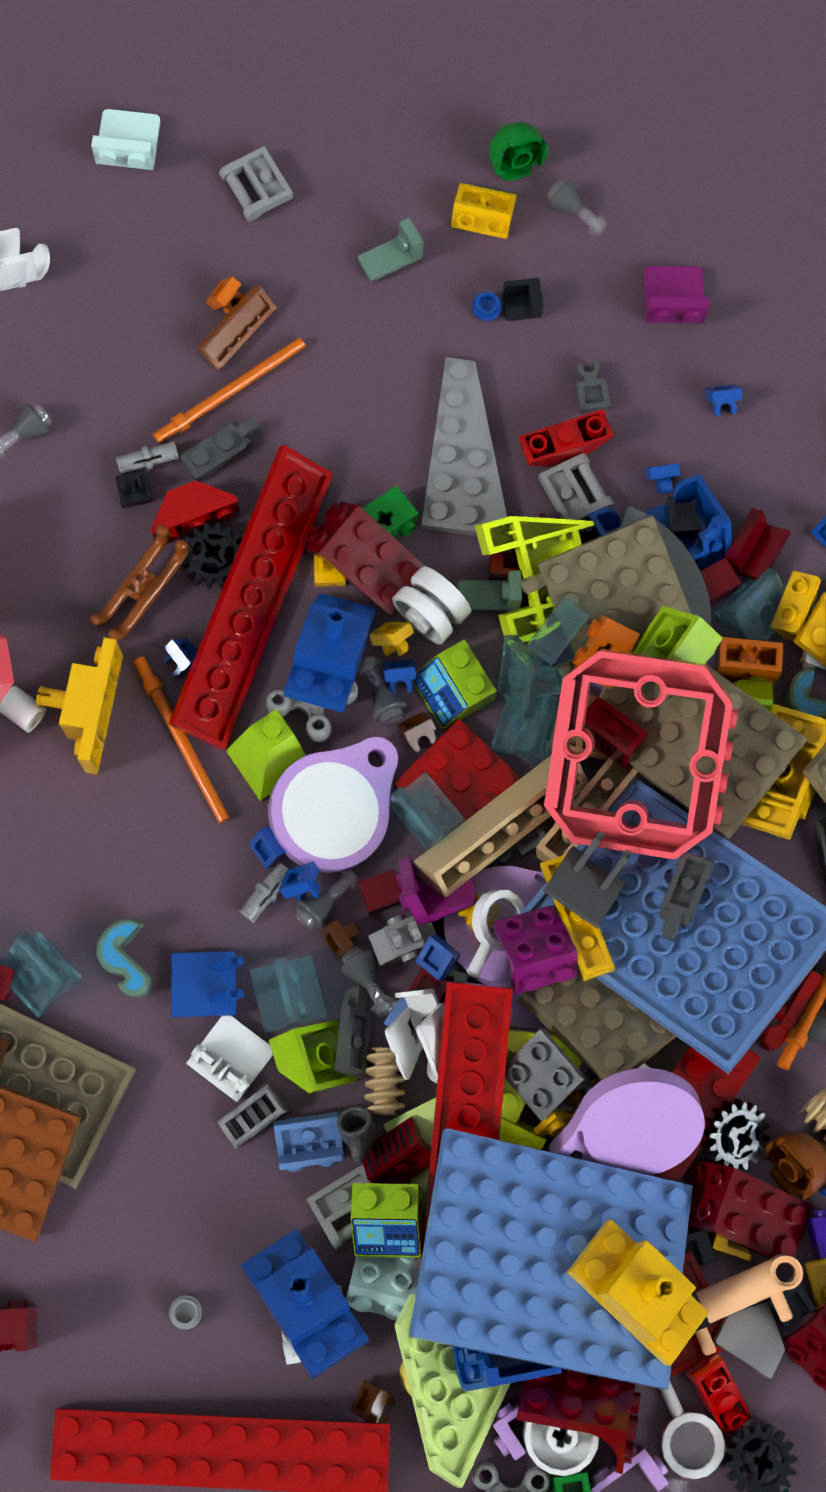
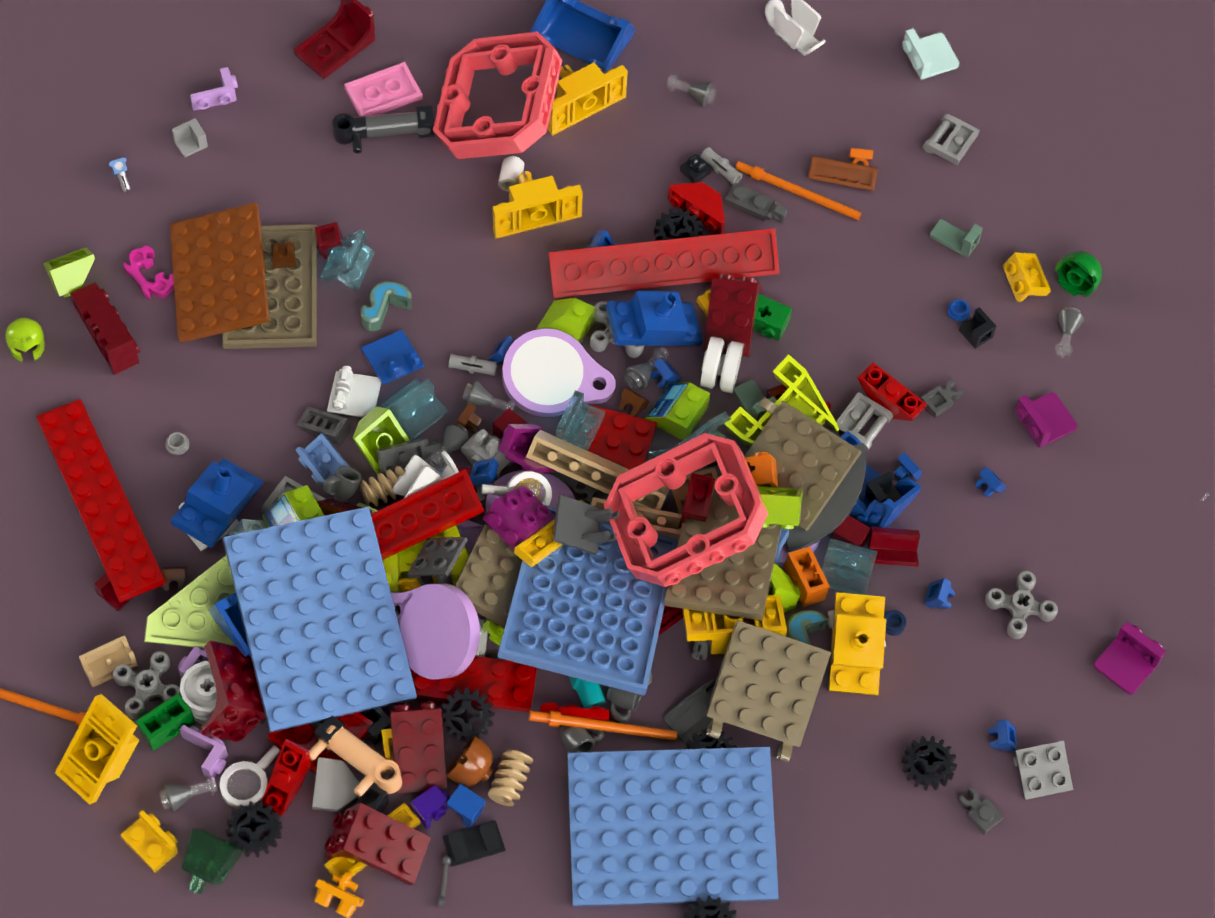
camera: 65 degrees right, 15 degrees down
(142, 585) = (632, 200): dark orange piece -> none
(154, 687) = (570, 241): orange bar -> none
(301, 880) = (488, 375): blue tile -> none
(392, 636) = (687, 356): yellow tile -> none
(463, 466) = (842, 345): light grey wing -> none
(558, 630) = (750, 436): clear light blue tile -> none
(640, 1290) = (324, 678): yellow brick -> none
(684, 893) = (607, 585): dark grey hinge -> none
(795, 604) = (873, 584): yellow bracket -> none

